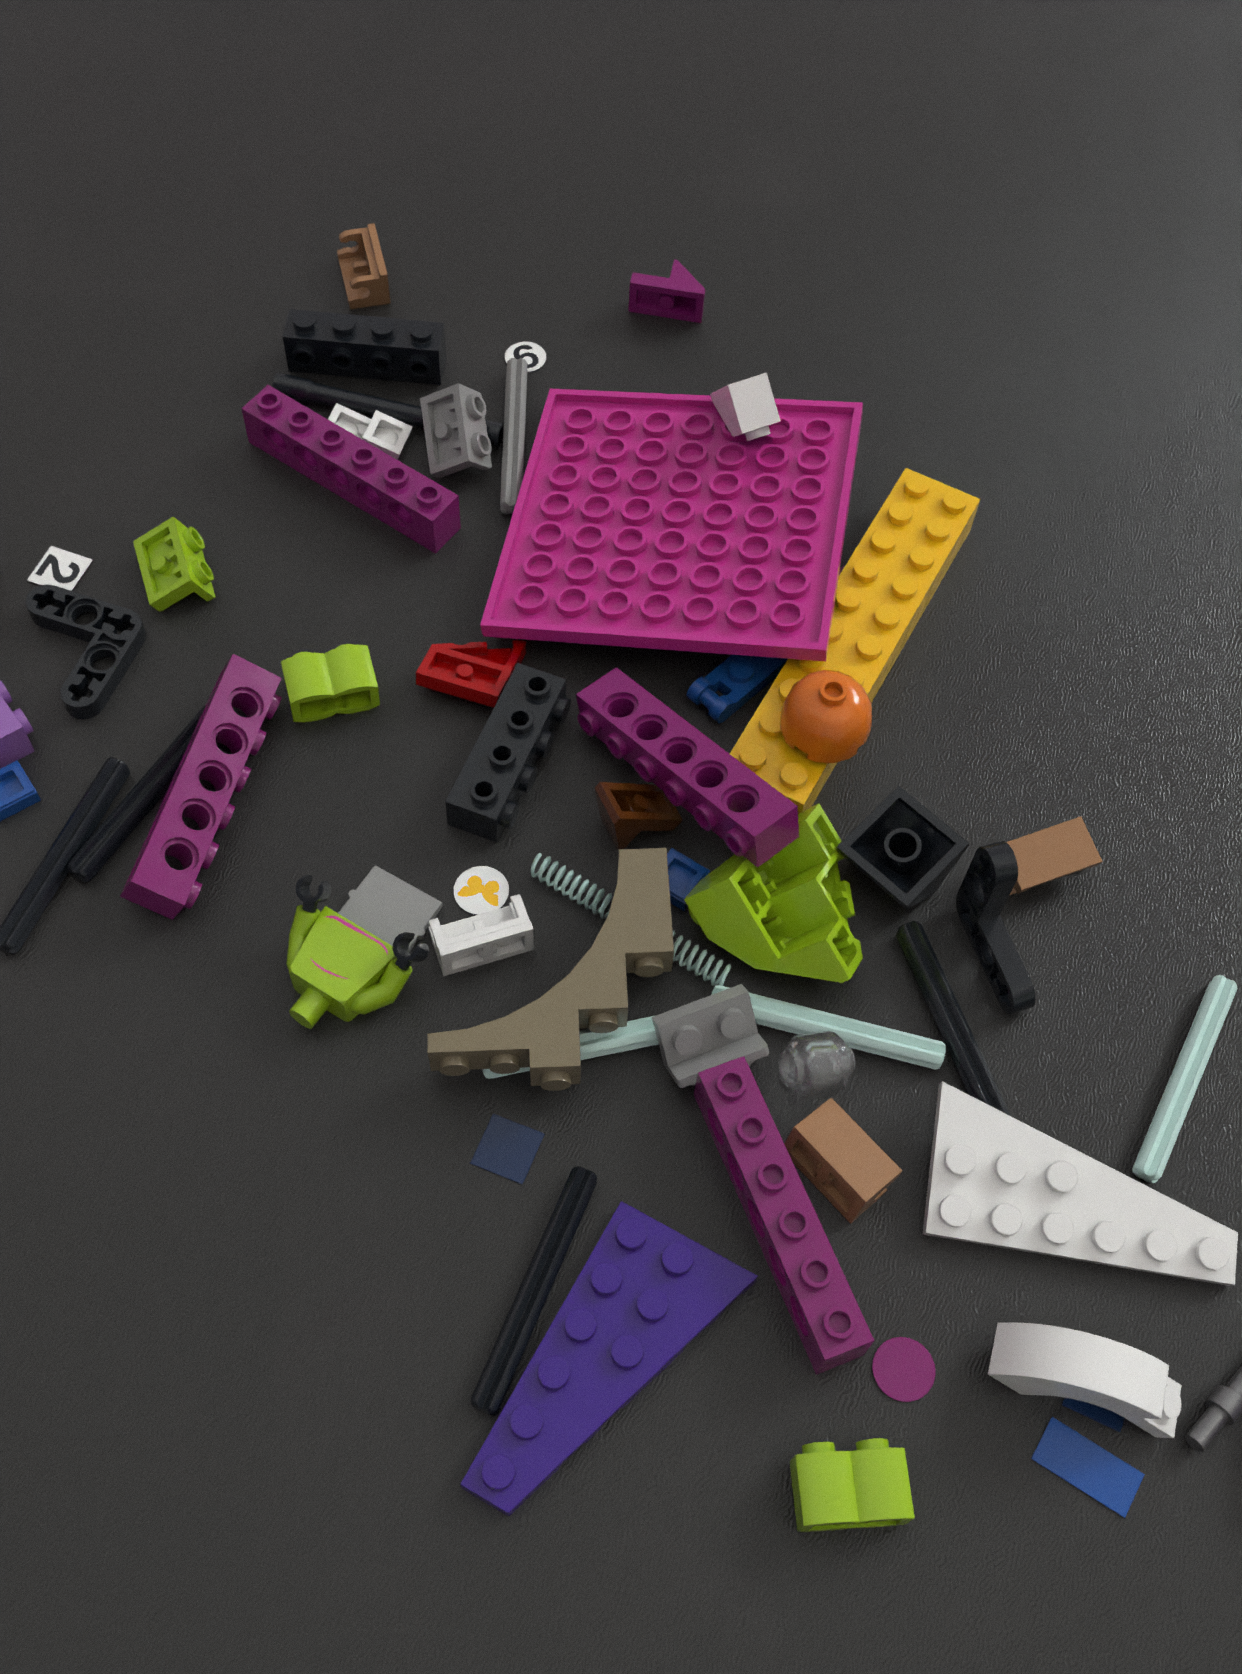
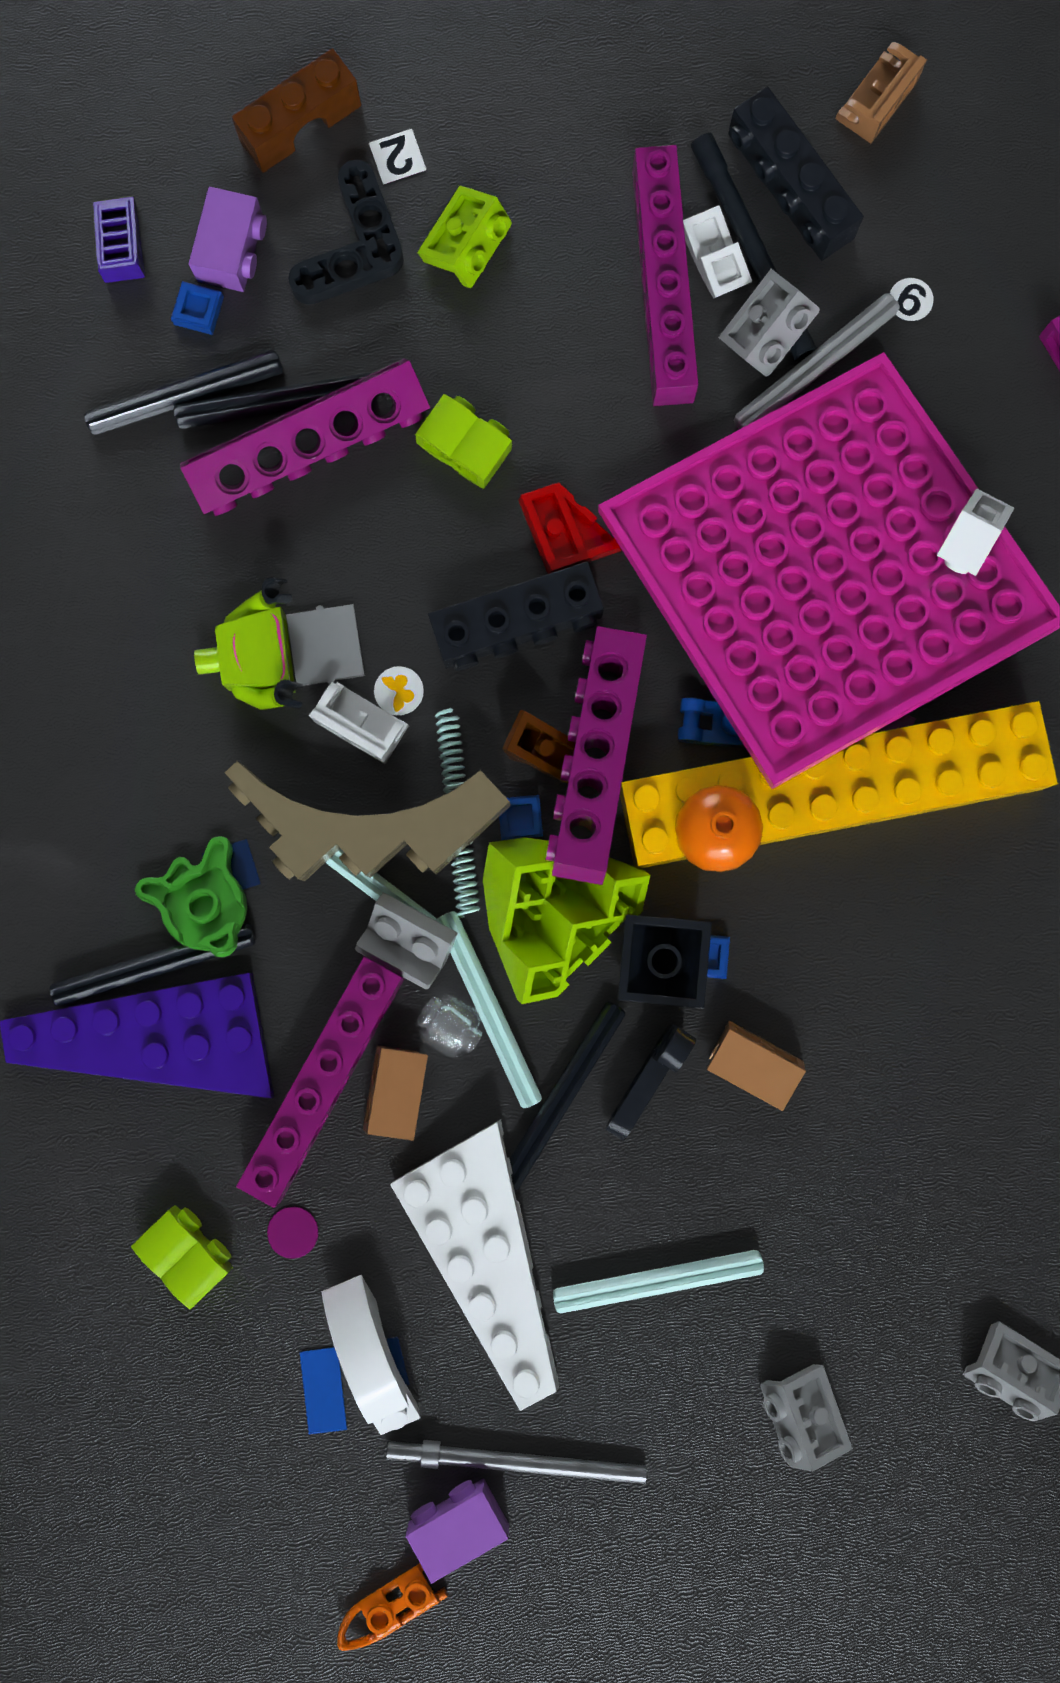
camera: 55 degrees right, 25 degrees up
(517, 1193) = (200, 902): none -> bright green tile

